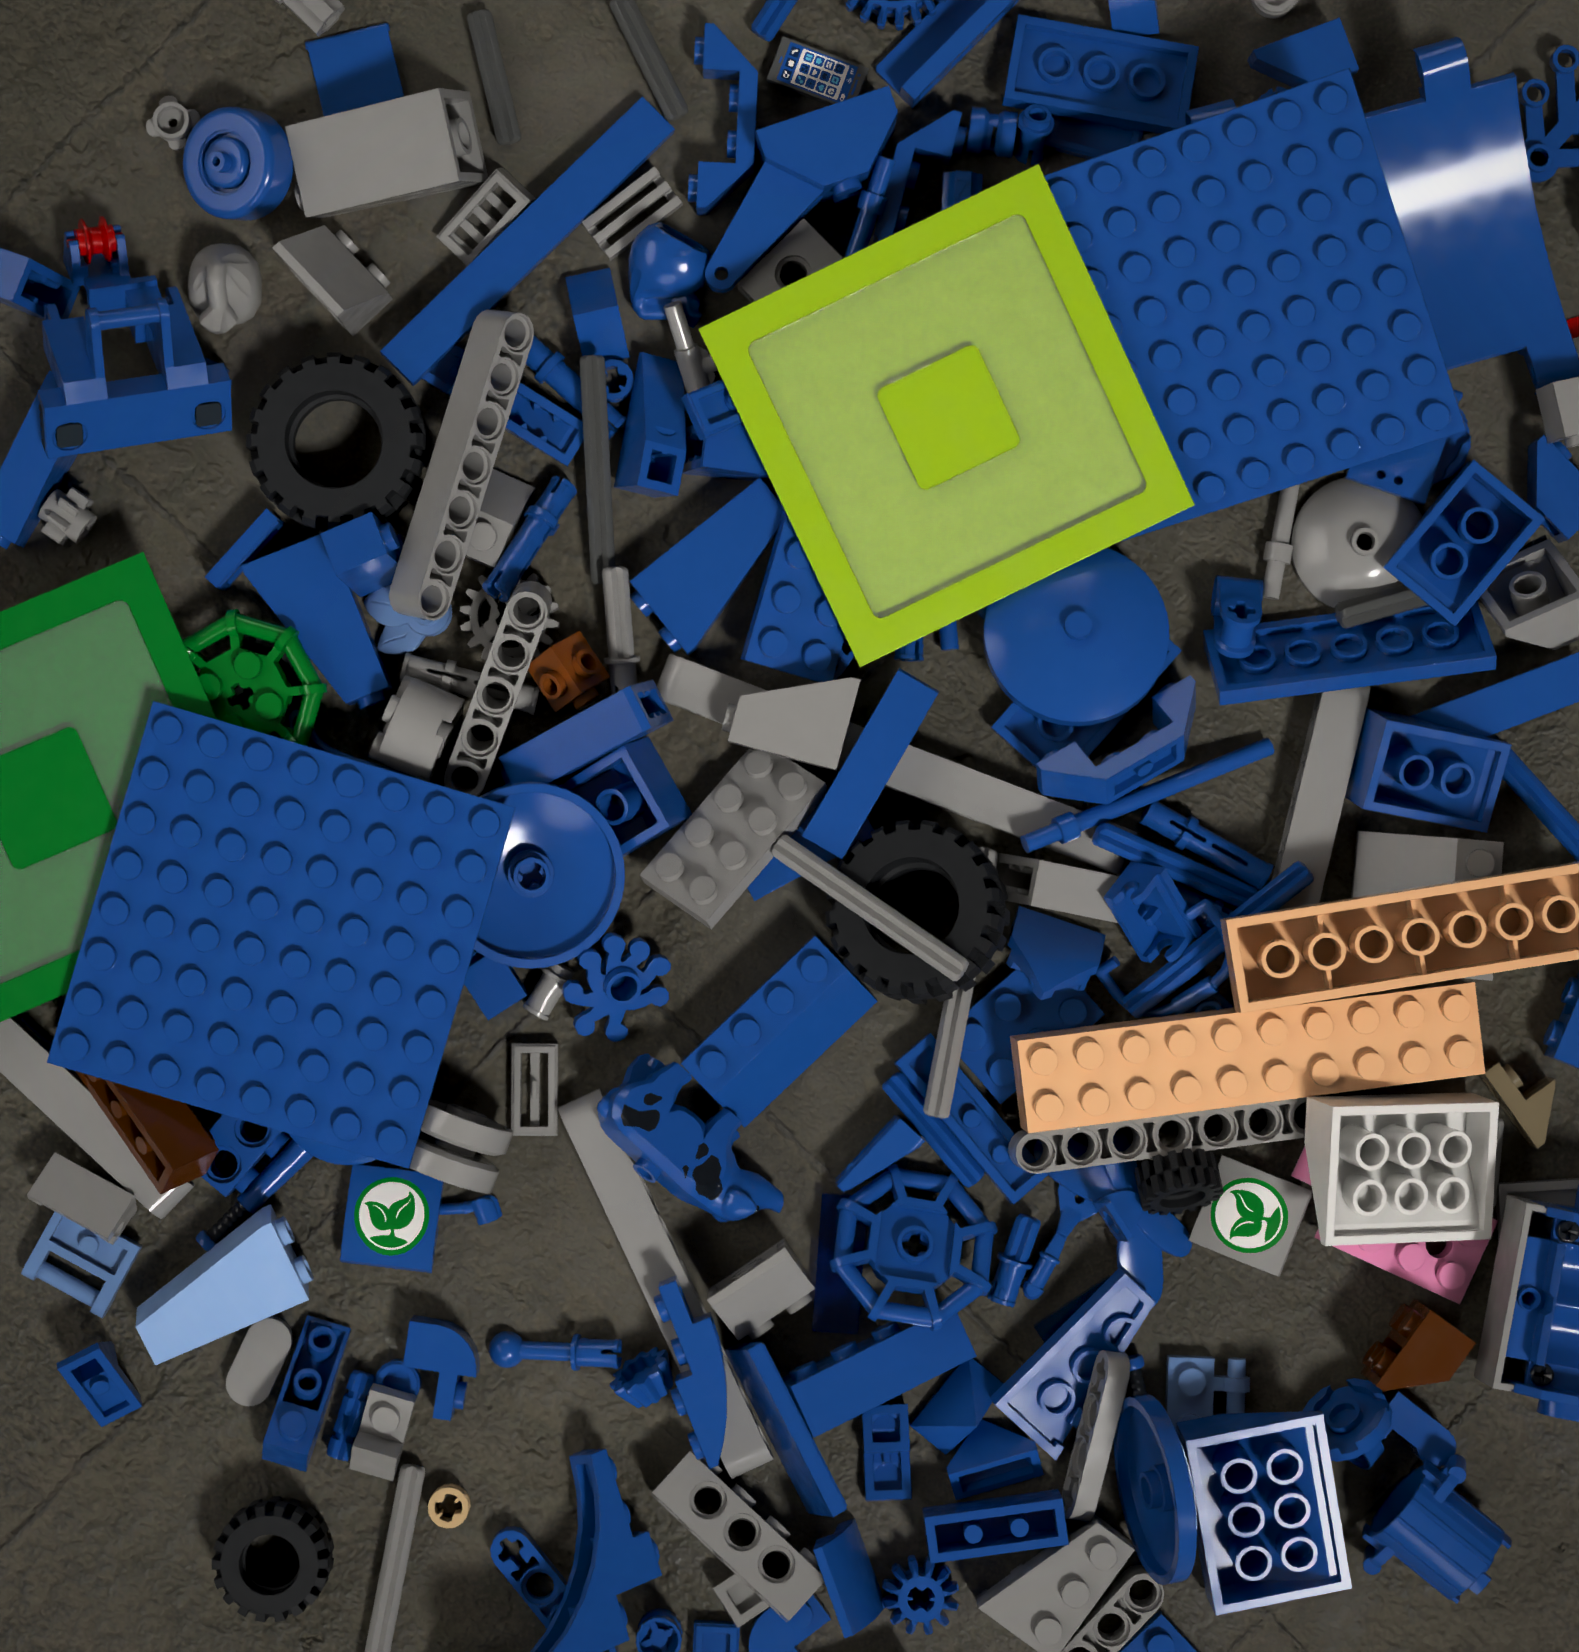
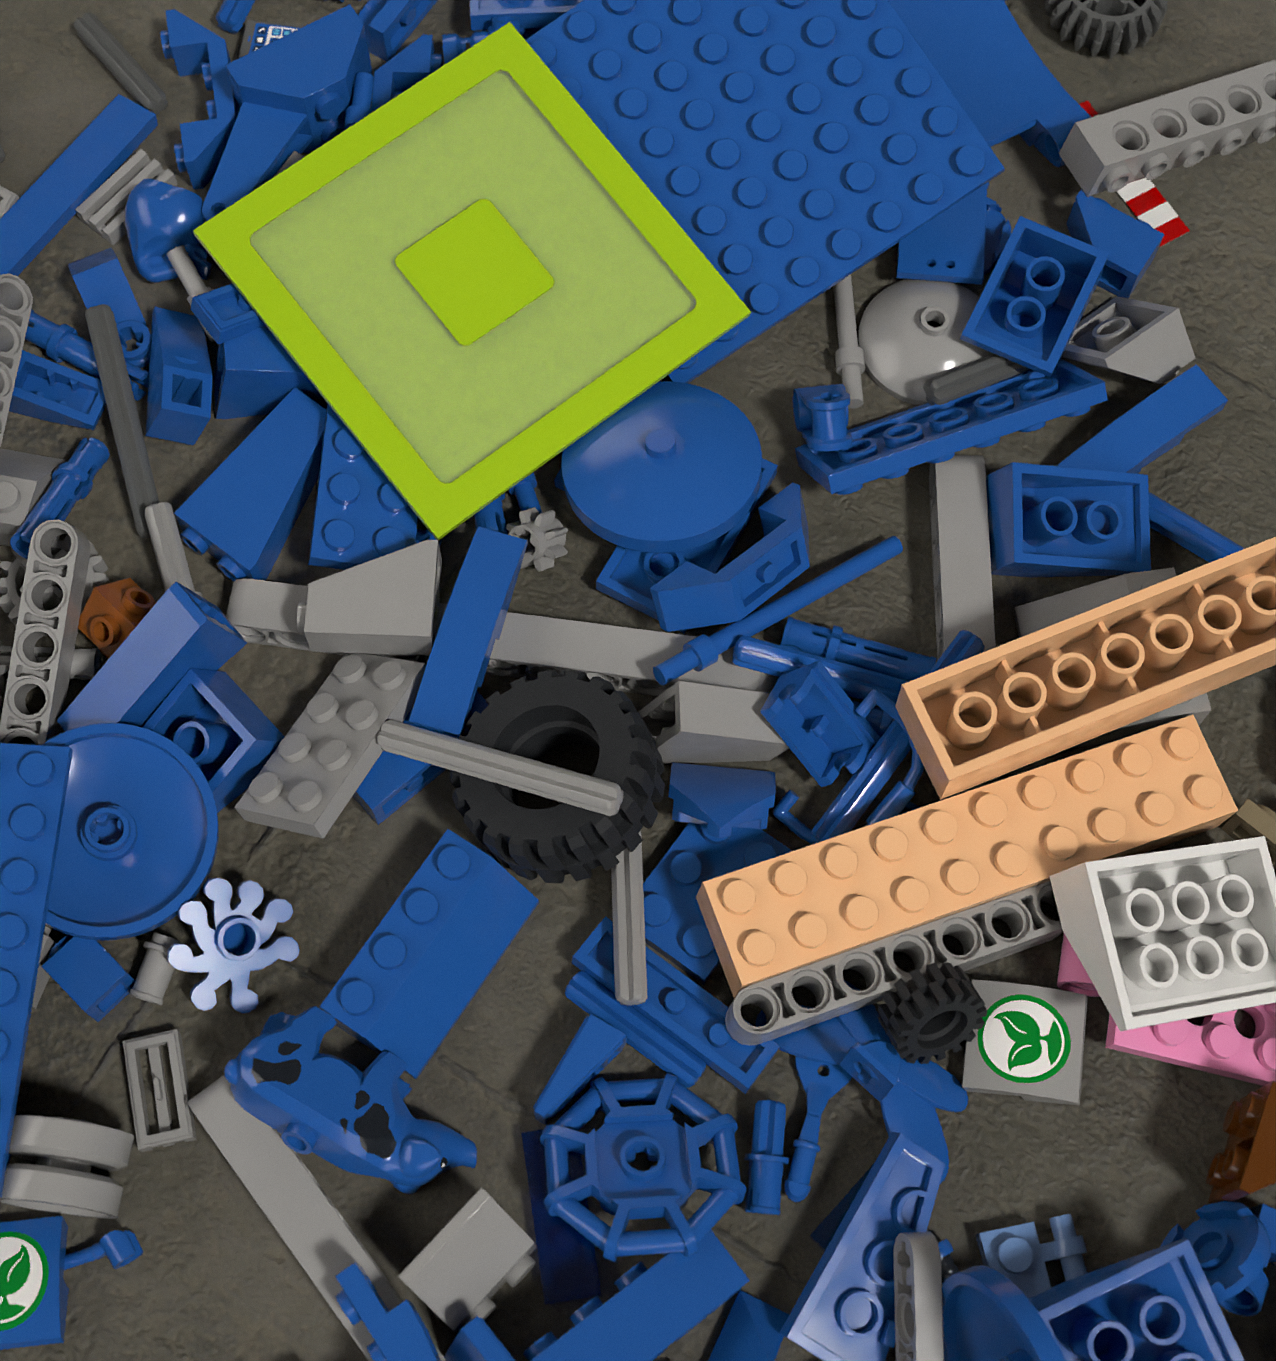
camera: 10 degrees left, 20 degrees down
(948, 673) = (544, 537): none -> light grey gear

